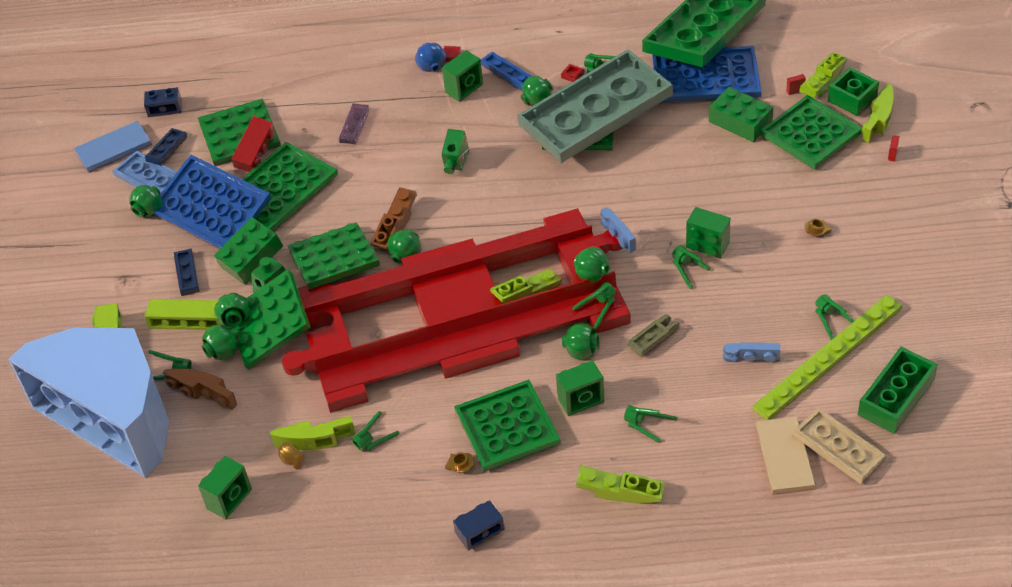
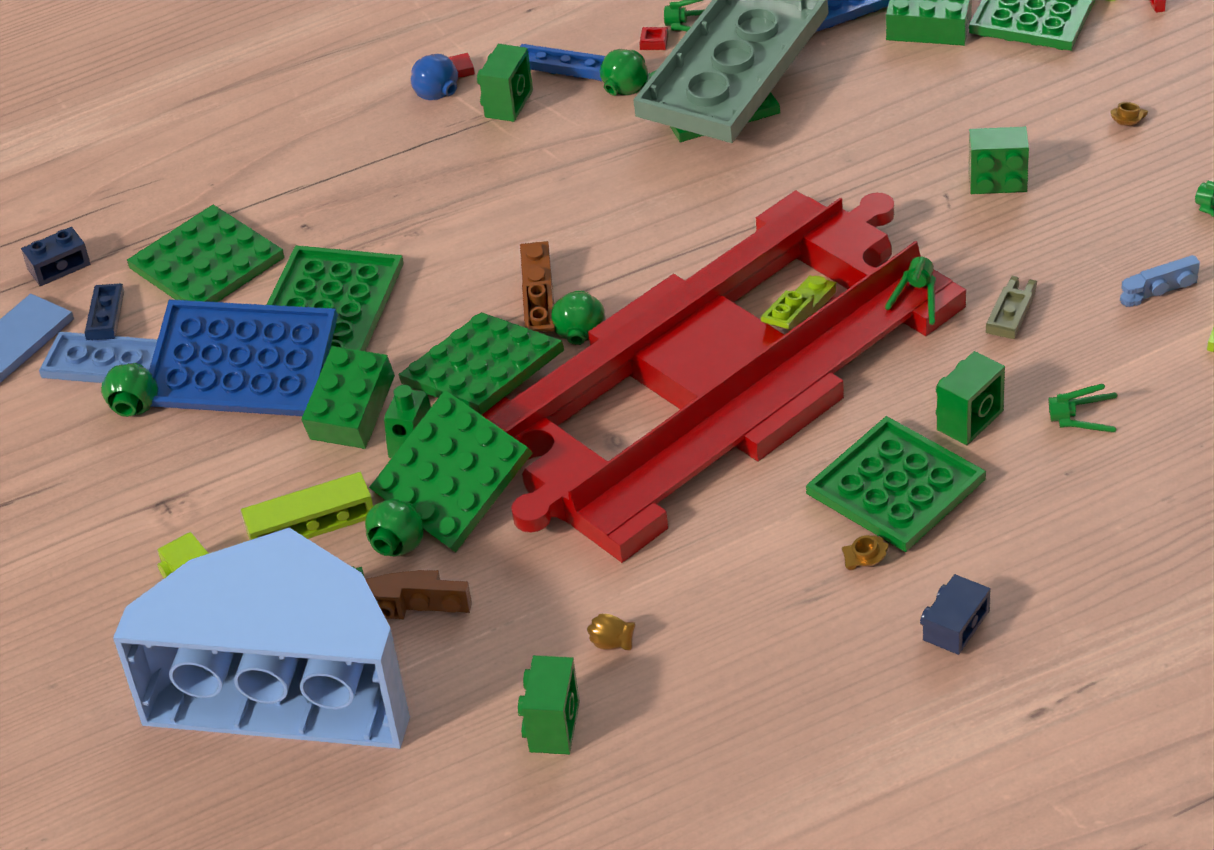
camera: 25 degrees left, 5 degrees down
(186, 272) = (261, 462): dark blue tile -> none
(229, 312) = (386, 476): green plant -> none
(253, 144) = (252, 261): red brick -> none
(314, 437) = (624, 598): lime slope -> none
(354, 124) = (378, 194): clear purple tile -> none
(363, 438) = (703, 574): green plant -> none
(455, 150) = (565, 188): green torso -> none
(581, 341) = (921, 346): green plant -> none
(591, 264) = (881, 241): green plant -> none
(618, 229) = (883, 190): medium blue hinge -> none
(623, 488) = (1116, 499): lime slope -> none
(683, 256) = (978, 201): green plant -> none

